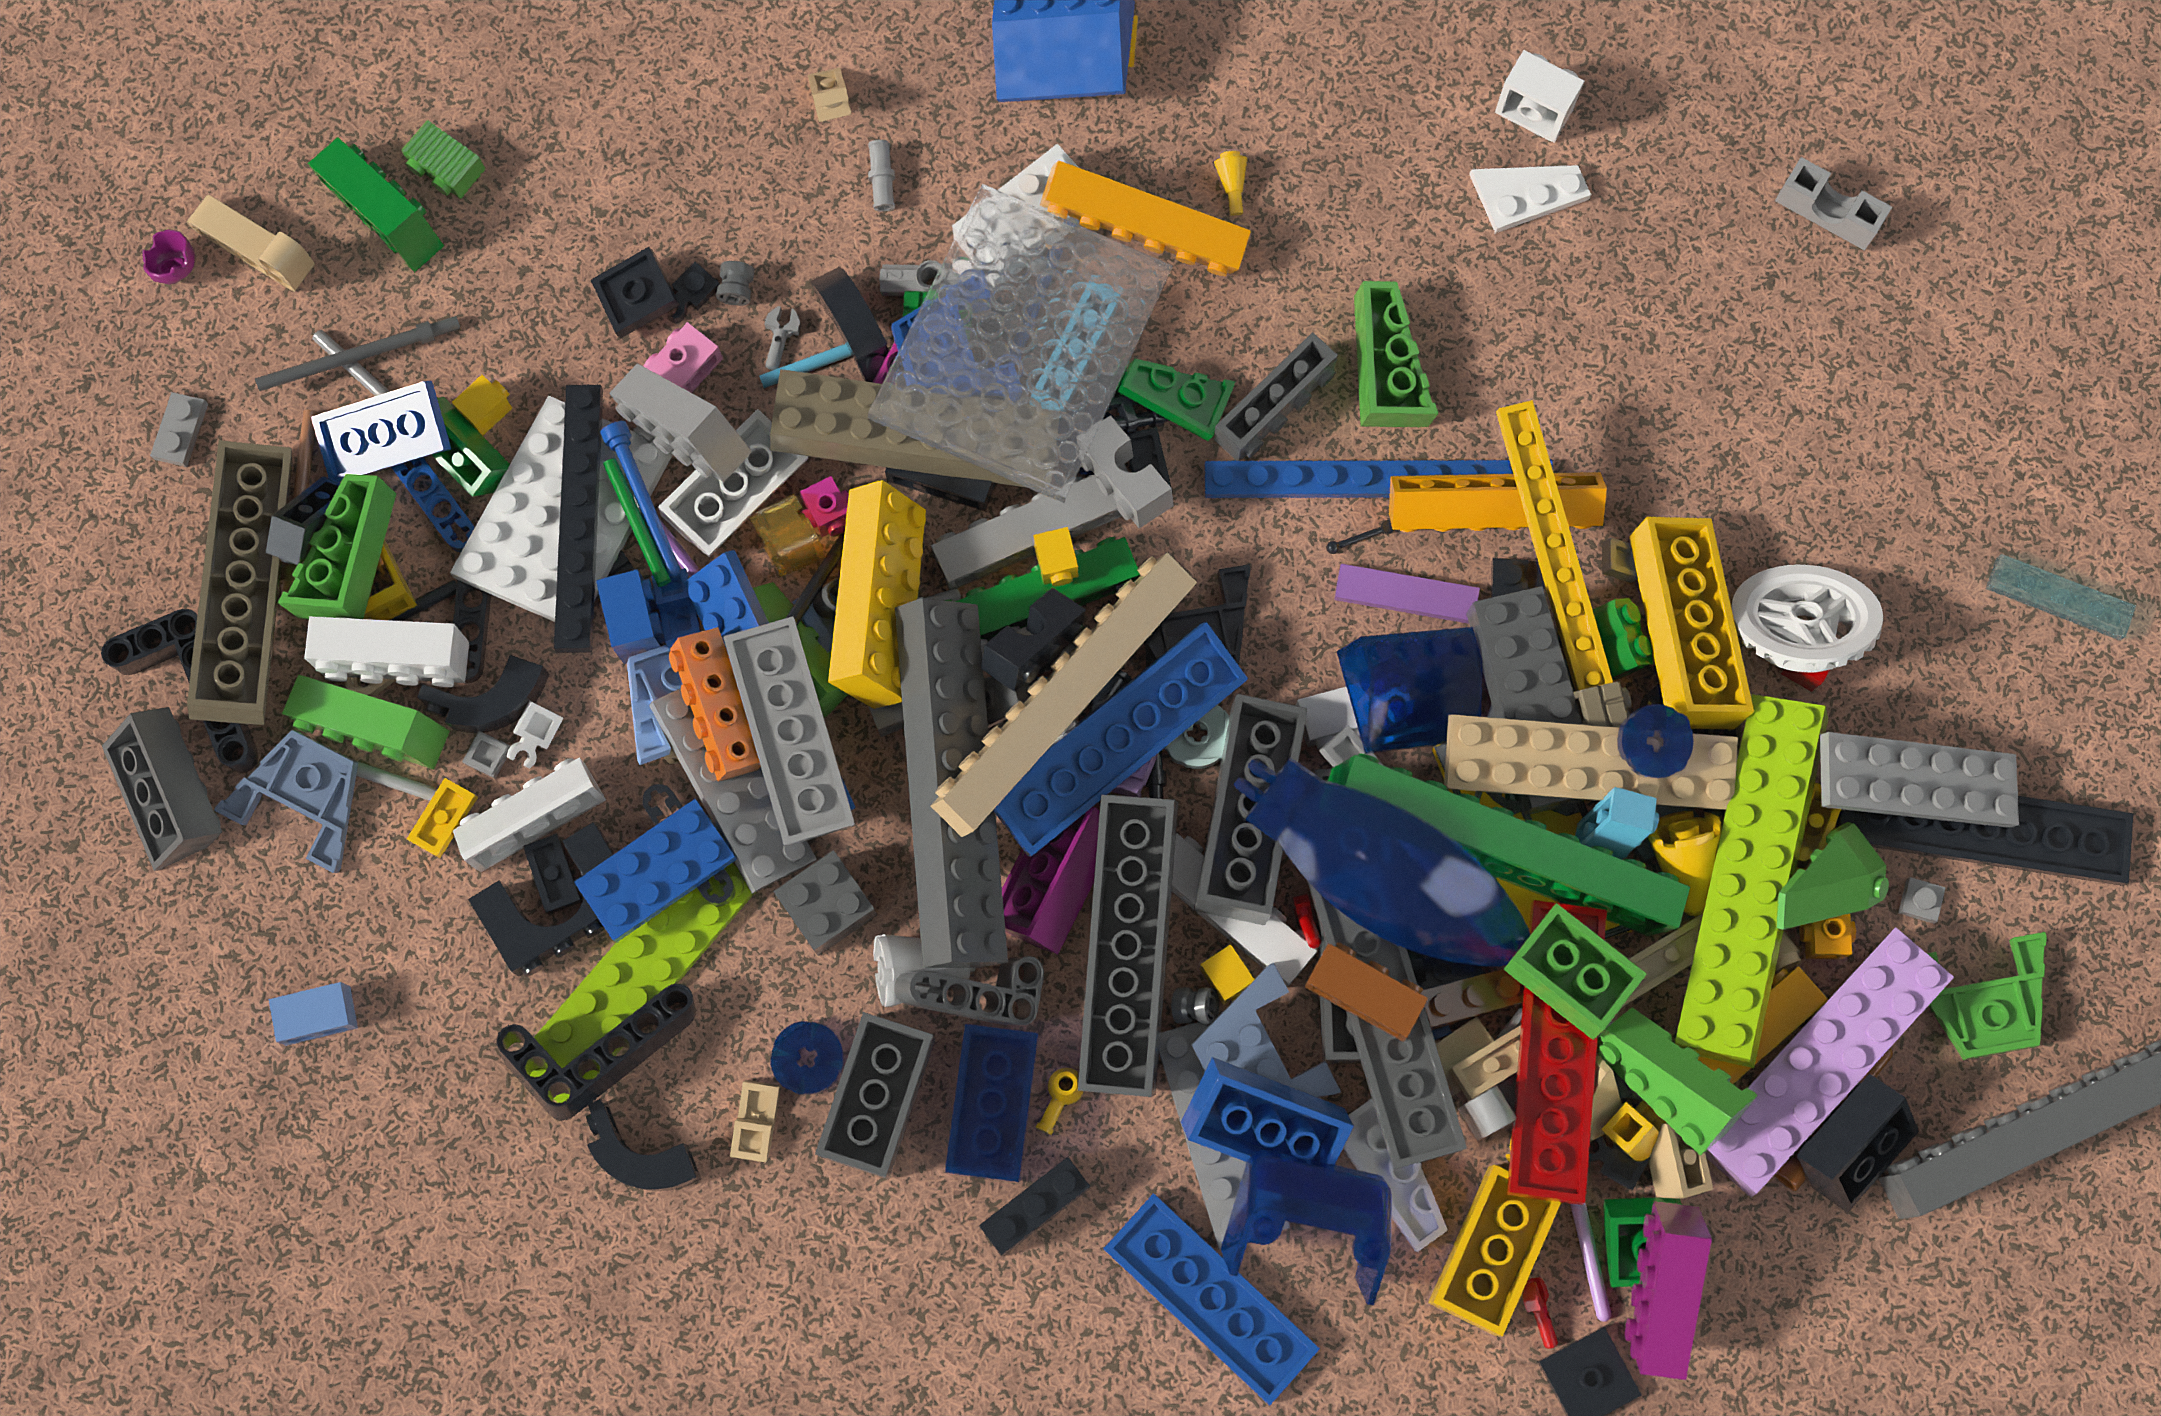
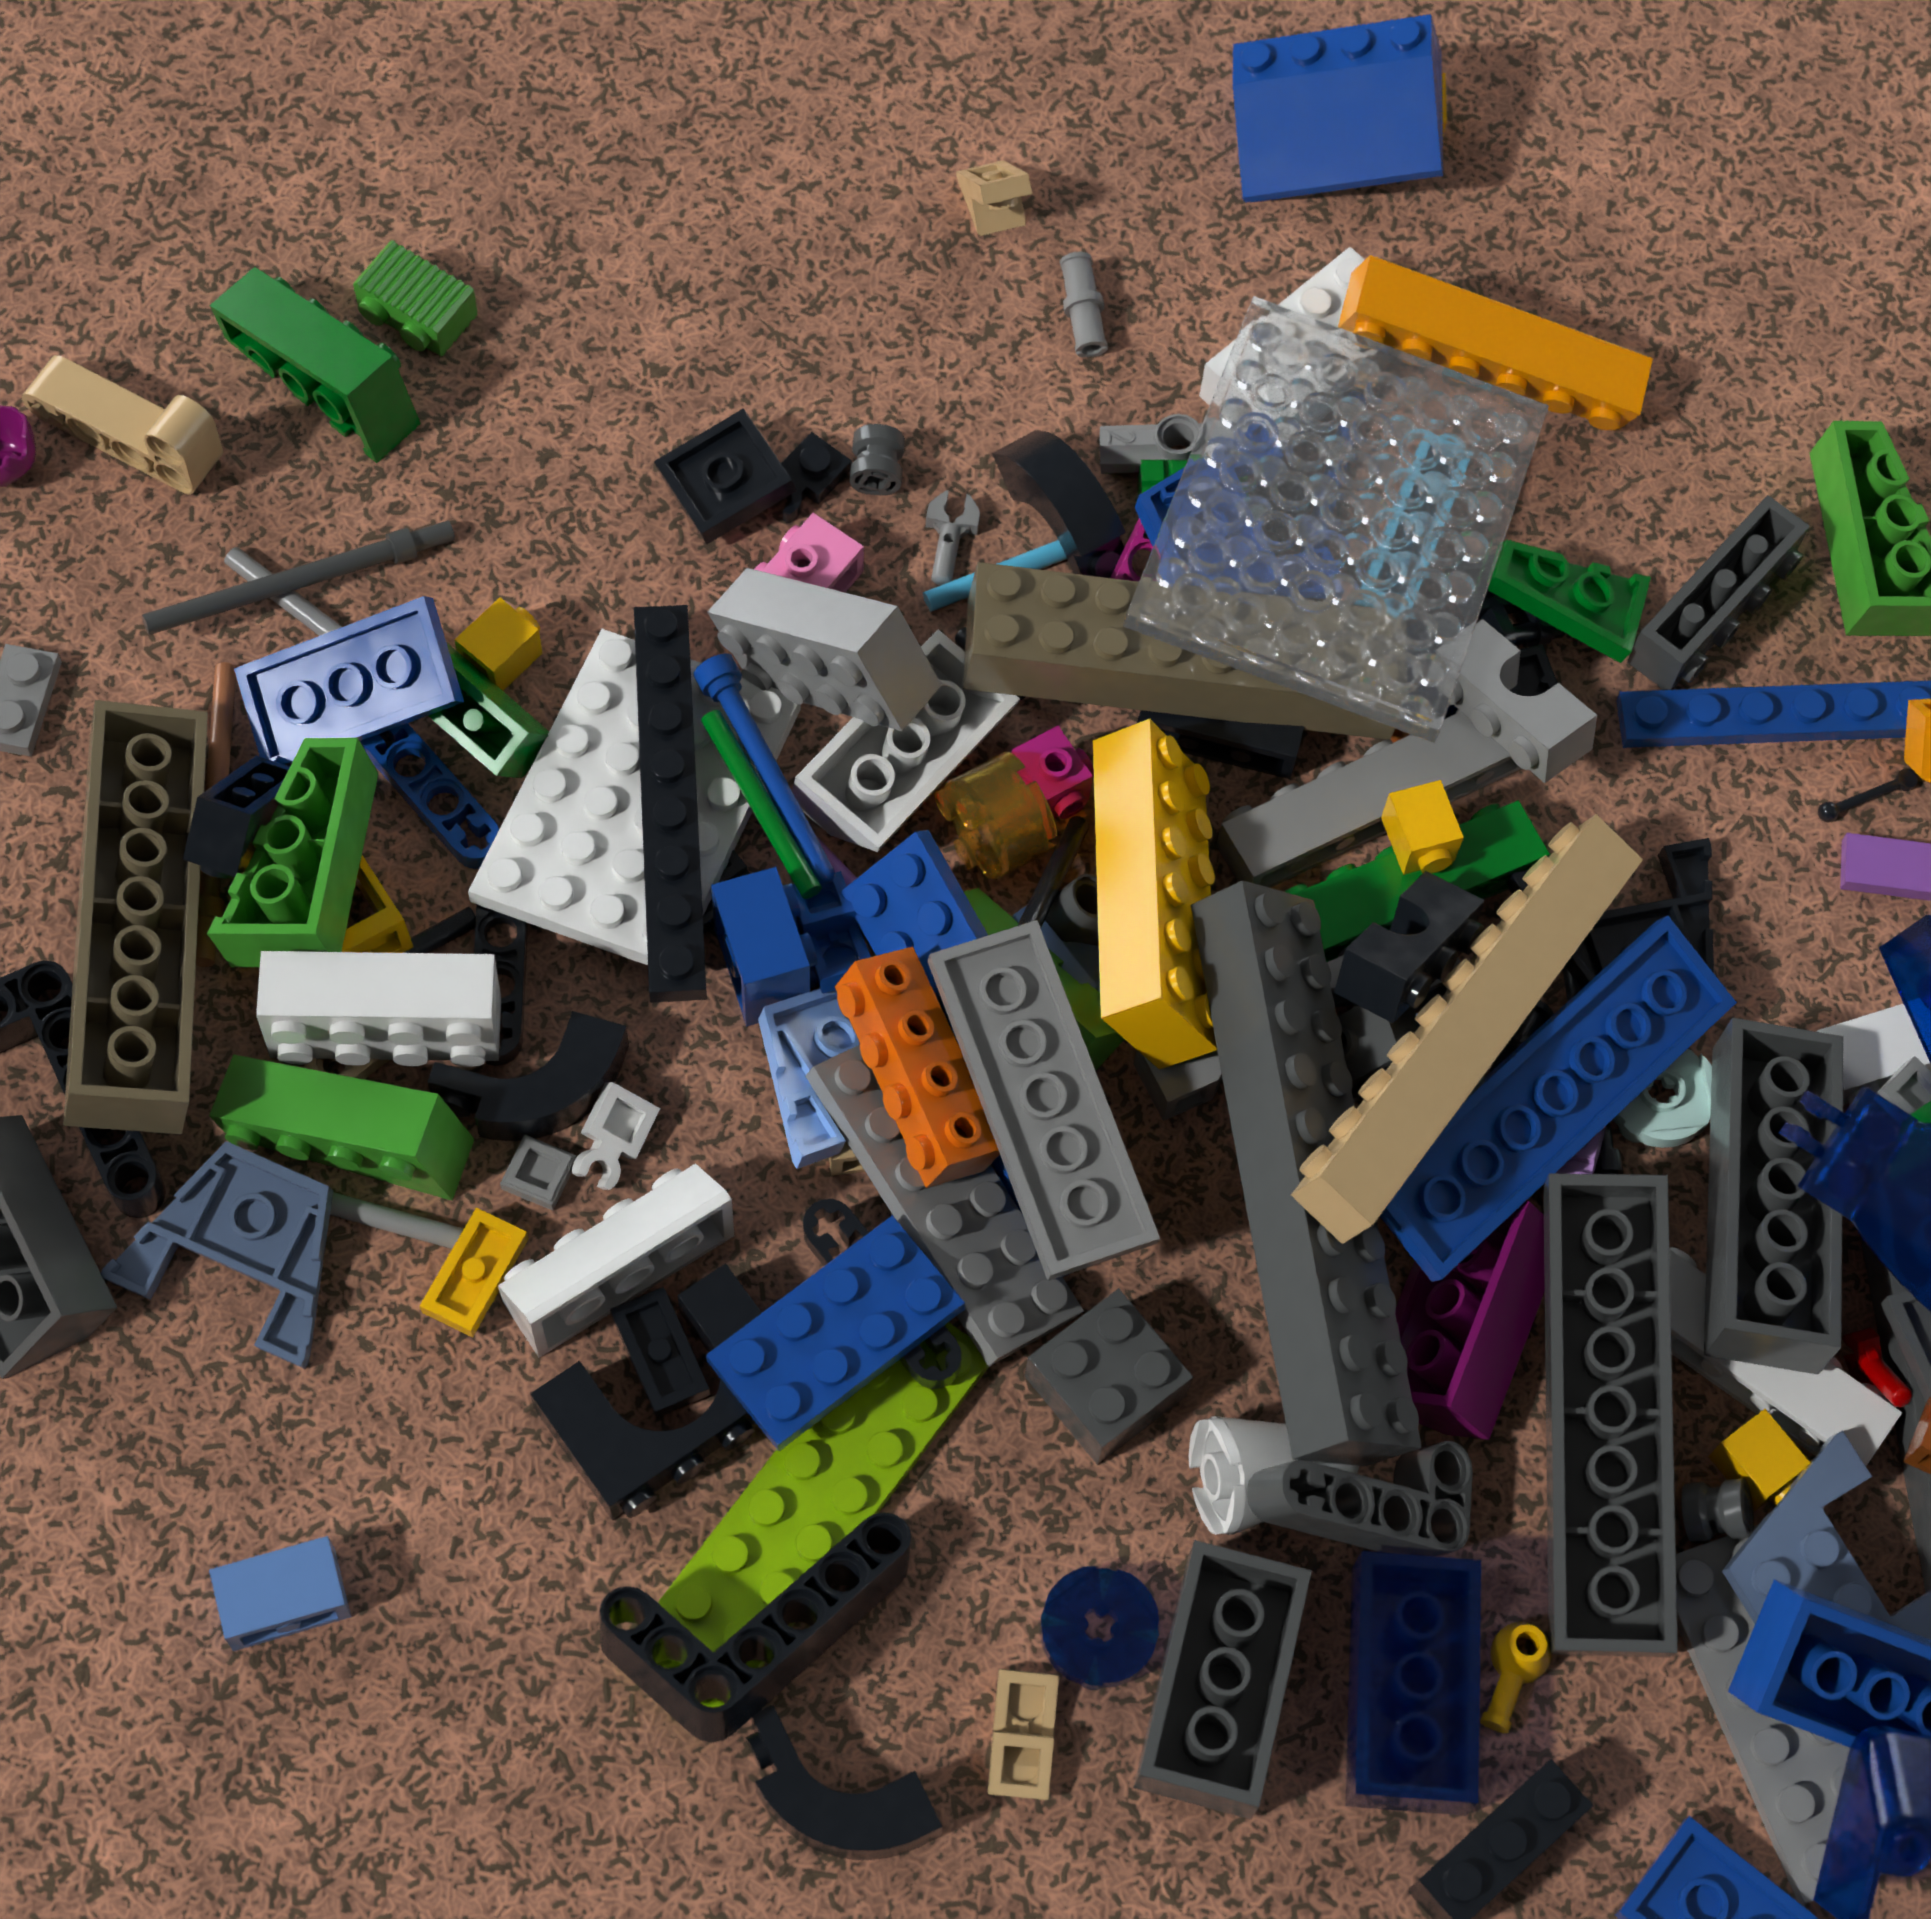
camera: 10 degrees left, 10 degrees down
(1232, 172) = (1605, 285): yellow cone -> none

